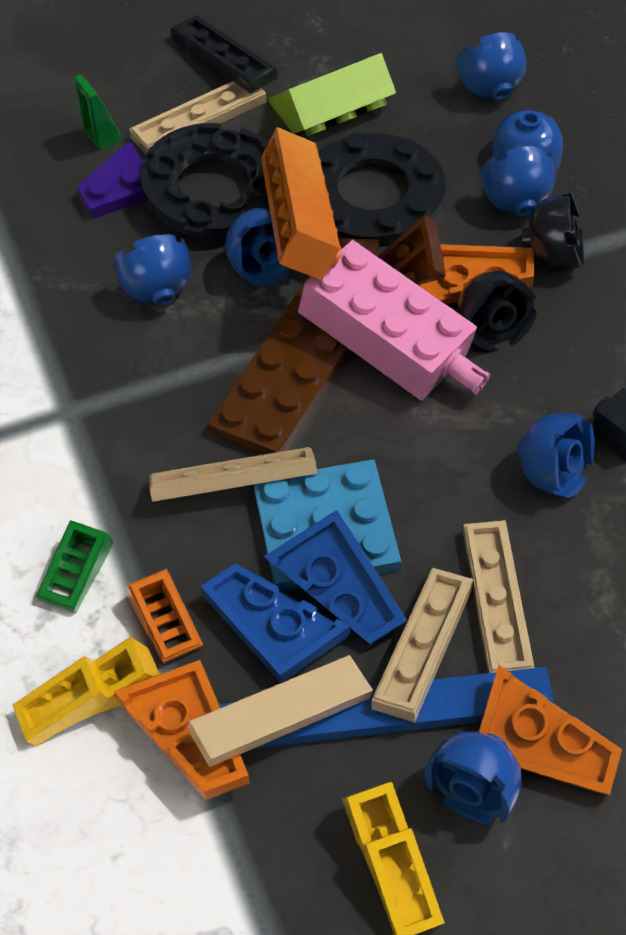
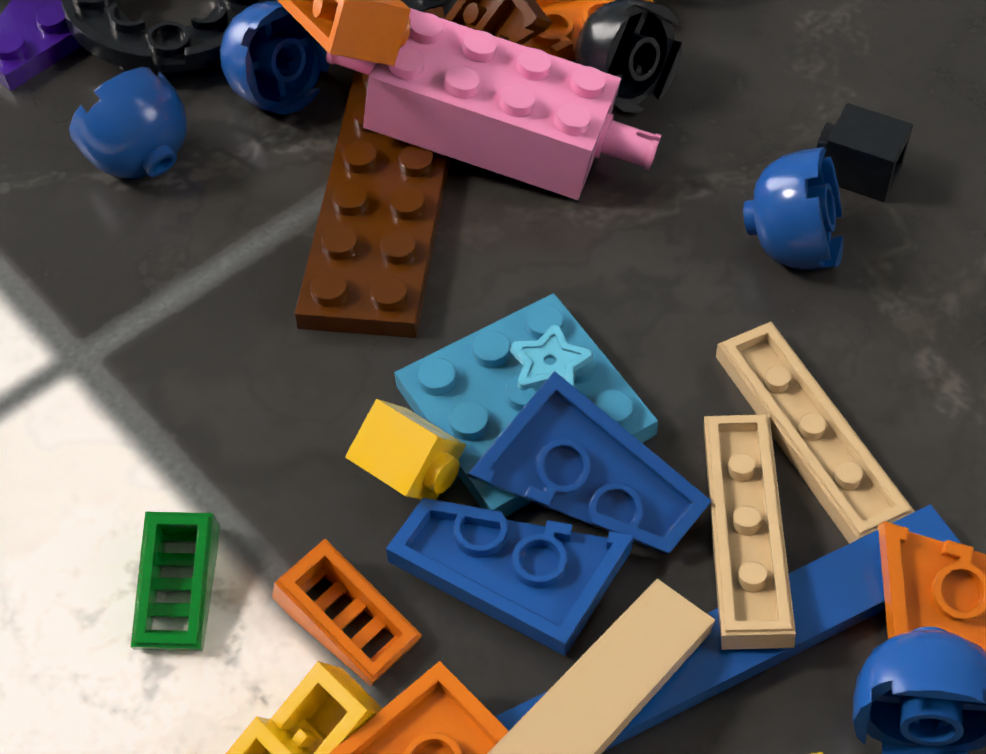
camera: 20 degrees left, 0 degrees up
(232, 474) = (360, 373): tan tile -> none
(236, 531) = (406, 451): none -> yellow brick
(351, 493) = (550, 345): none -> medium azure plate

